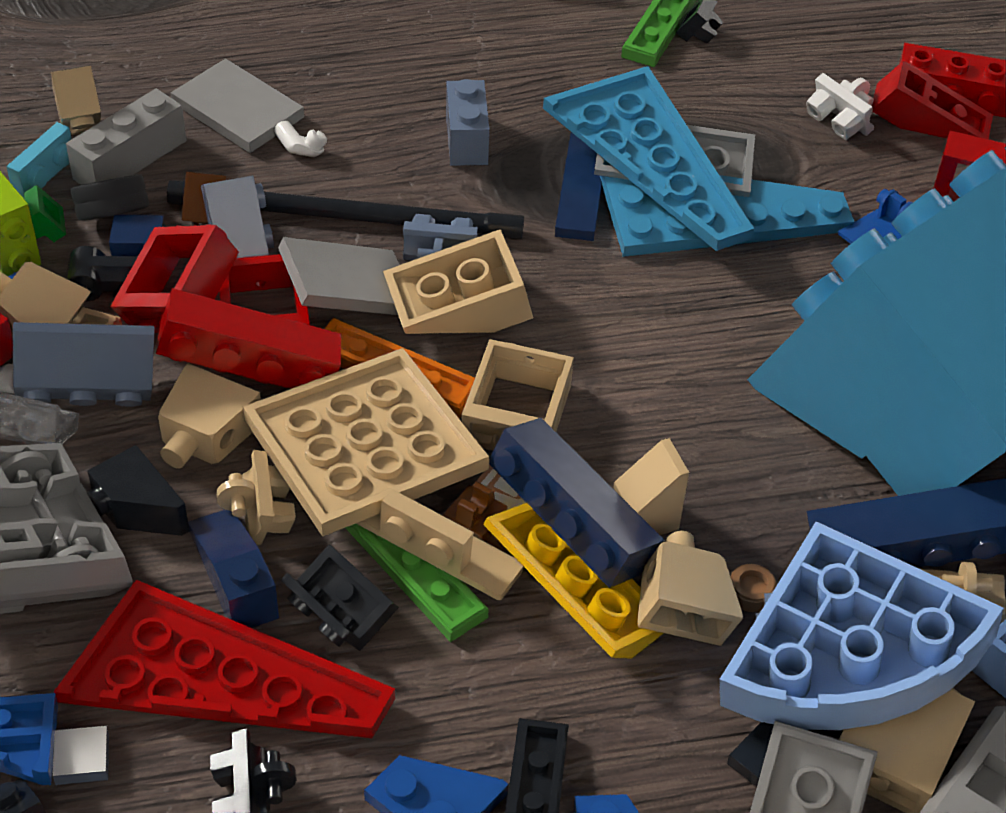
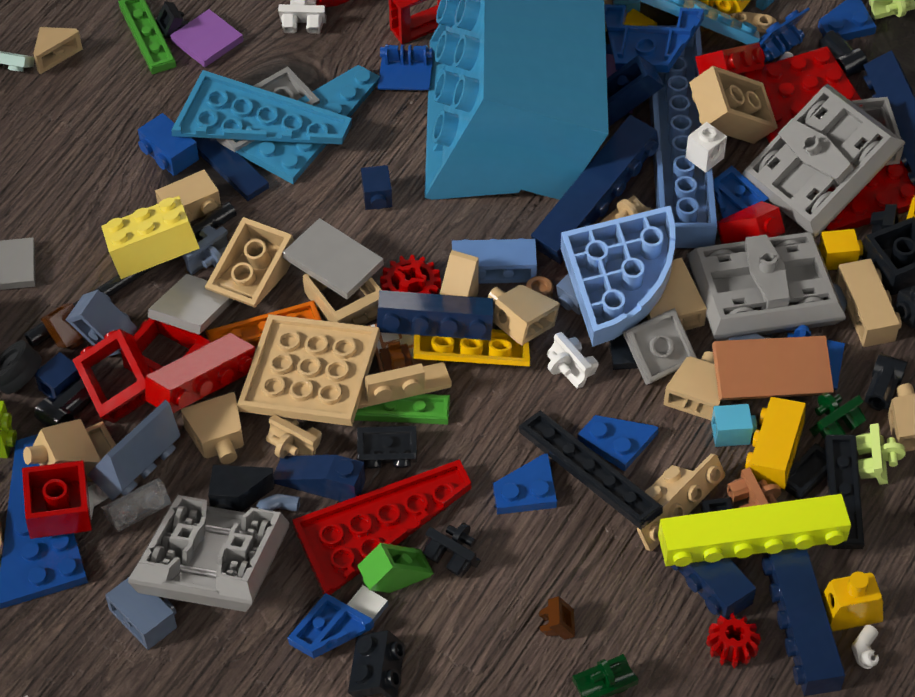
camera: 45 degrees left, 5 degrees up
(155, 547) = (279, 501): none -> sand blue arm
(159, 740) = (393, 568): none -> bright green slope
(309, 146) = (56, 260): white arm -> none
(392, 180) = (149, 237): none -> light yellow brick
(467, 122) = (133, 175): sand blue brick -> none
(488, 182) = (196, 192): none -> tan brick
(536, 132) = (168, 151): none -> blue brick
(540, 347) = (333, 258): none -> light grey tile
(608, 441) = (411, 276): none -> red gear
(670, 696) = (566, 358): none -> white hips
(699, 323) = (376, 187): none -> dark blue brick
(717, 61) = (206, 38): none -> medium lavender tile
(739, 509) = (502, 259): none -> medium blue brick

